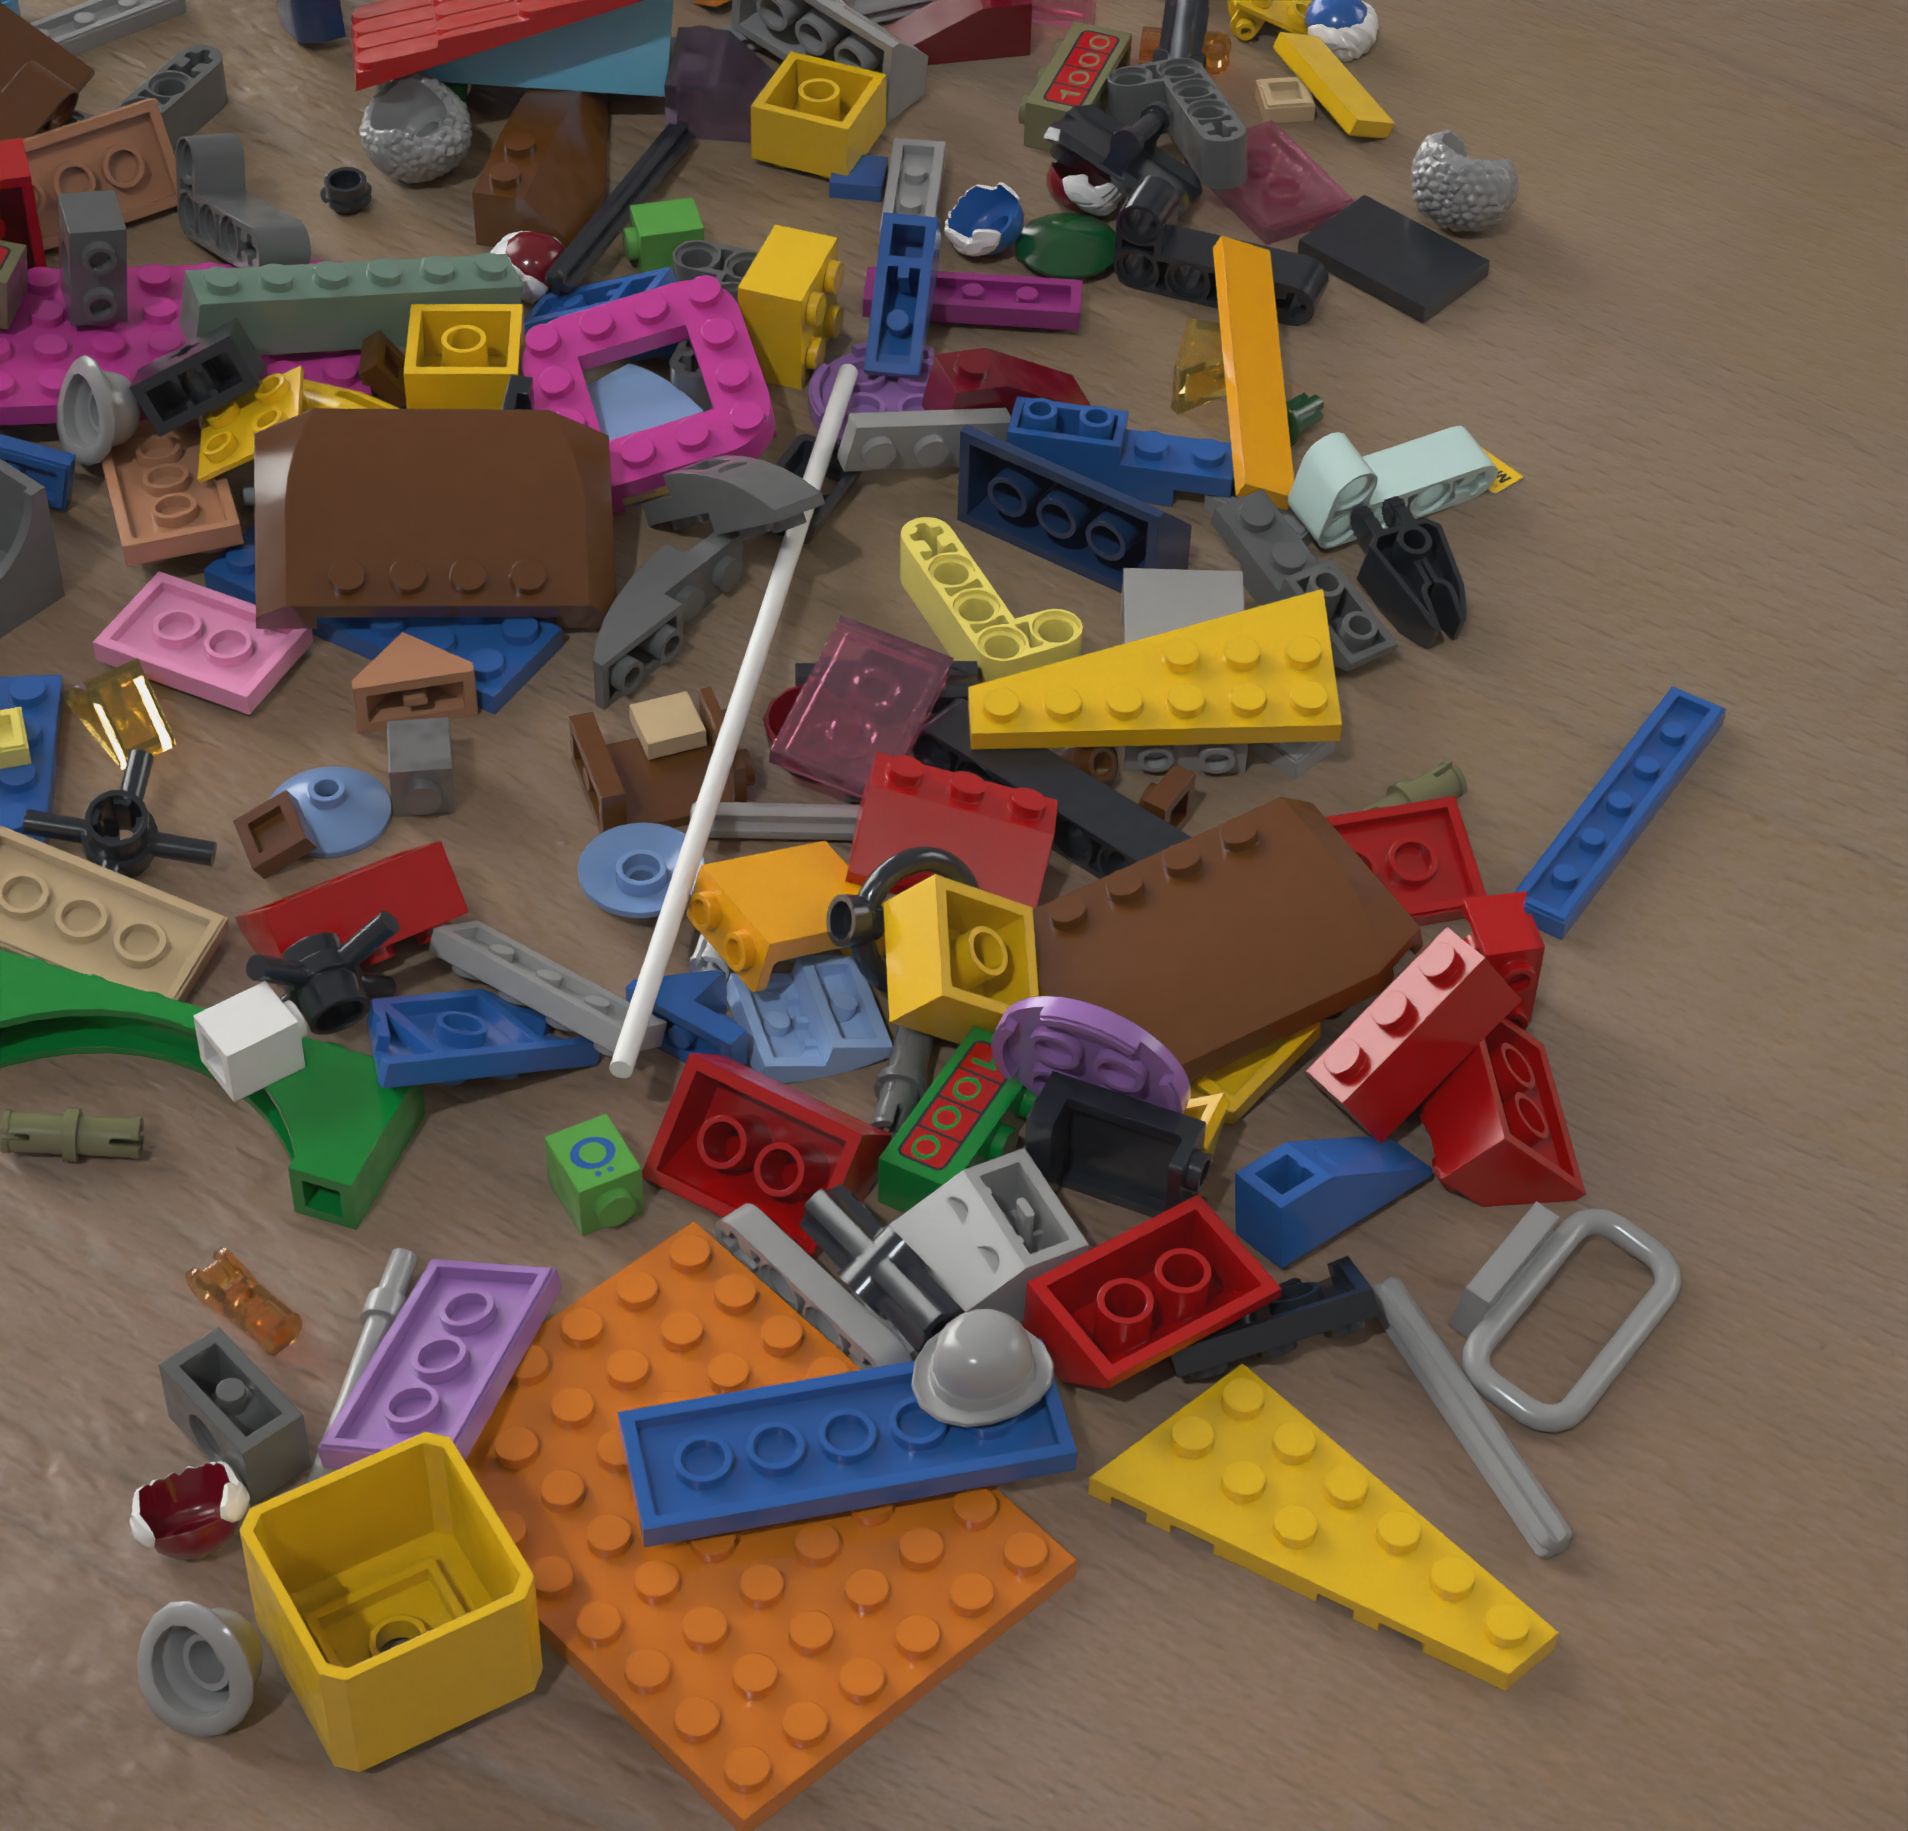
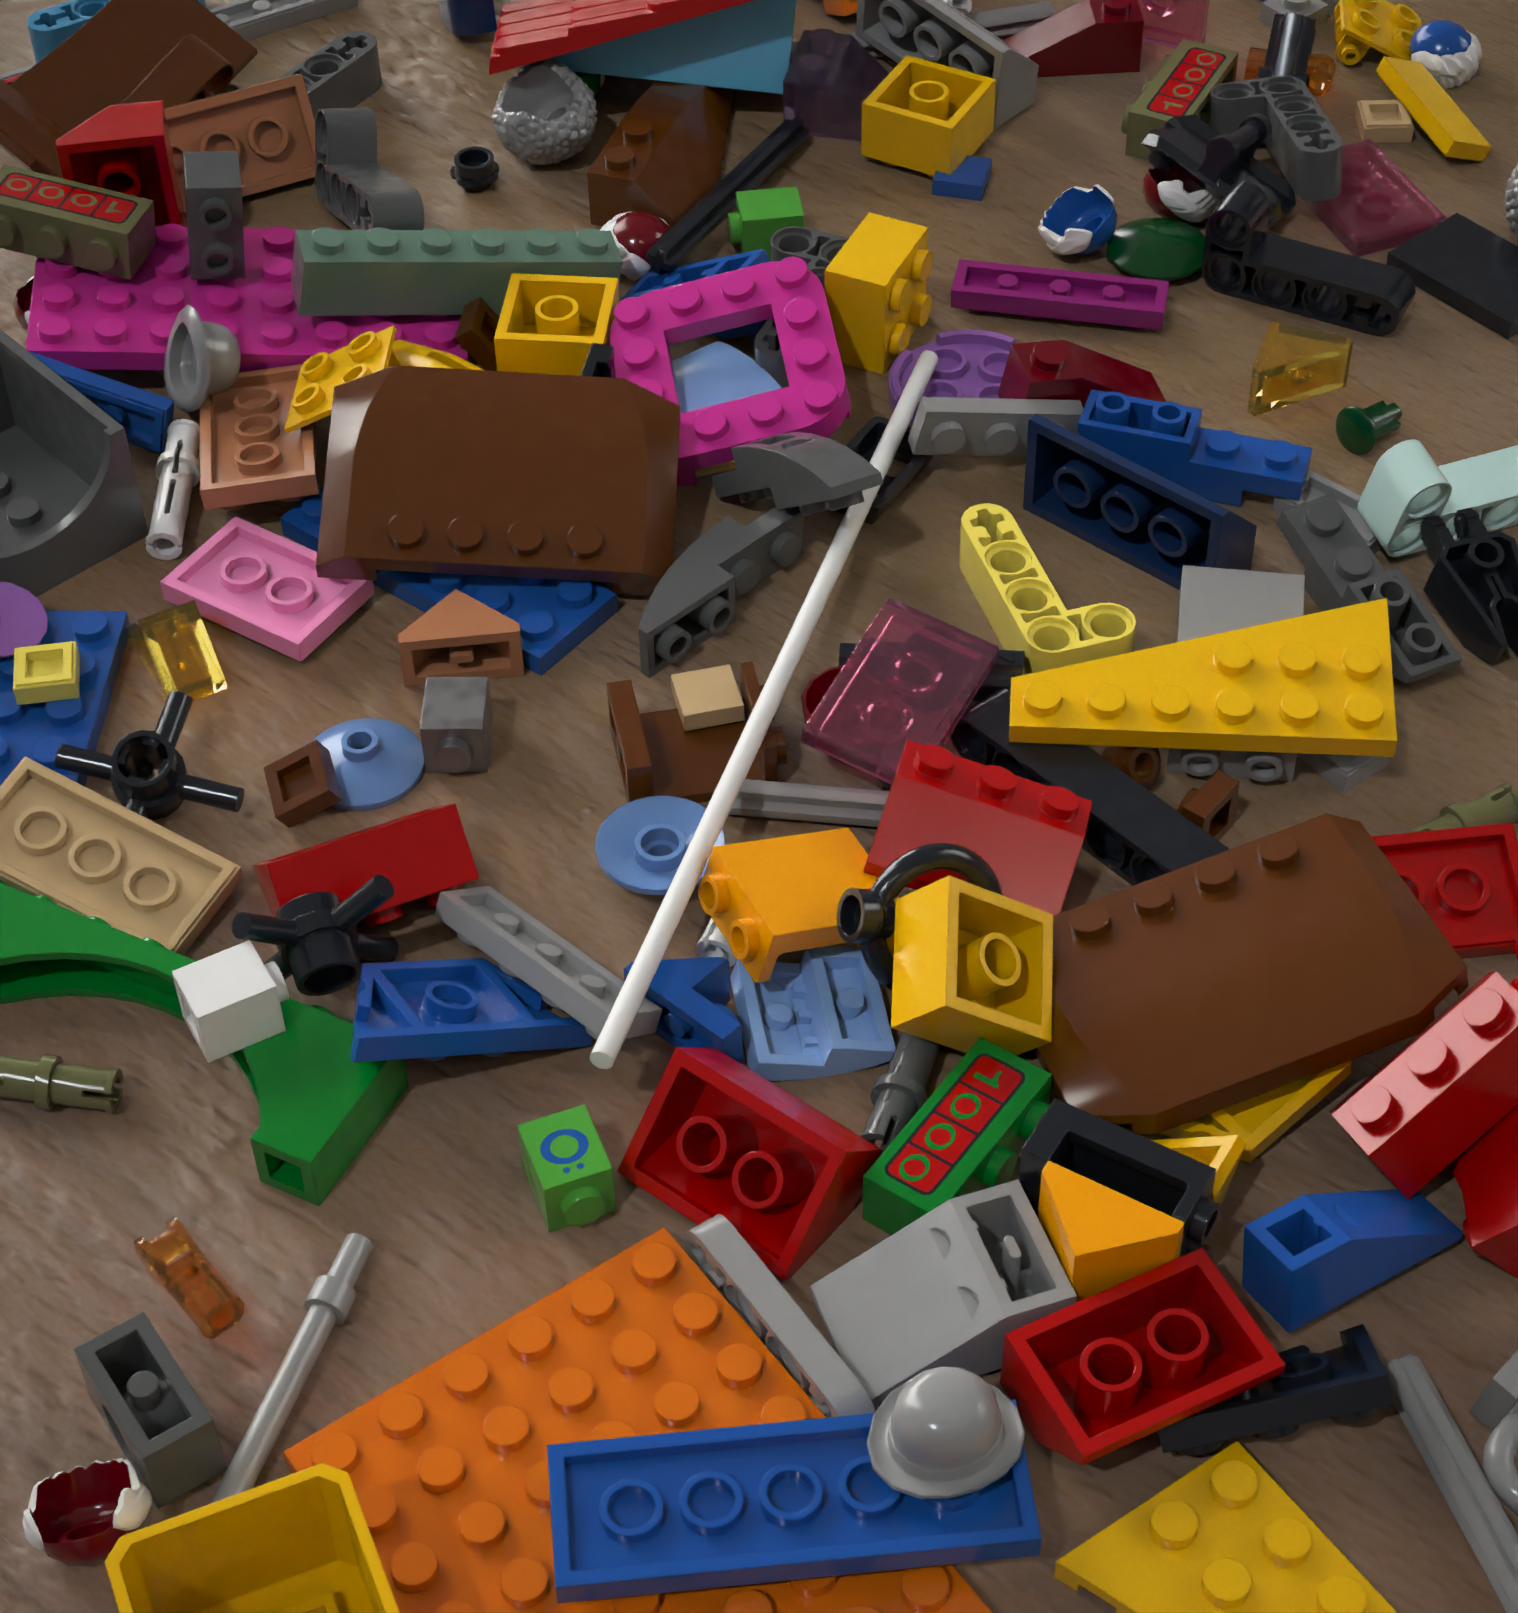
camera: 10 degrees right, 0 degrees up
(87, 504) = (177, 474): none -> white pin
(198, 377) = (296, 332): black brick -> none
(443, 1358) = (375, 1370): medium lavender tile -> none
(878, 1265) = (850, 1300): black piece -> none
(902, 295) = (989, 286): blue slope -> none
(914, 178) = (1011, 195): light grey plate -> none
(1088, 1045) = (1096, 1075): medium lavender tile -> none
(1106, 1186) = (1101, 1232): none -> light orange slope
(1253, 371) = (1332, 377): light orange tile -> none

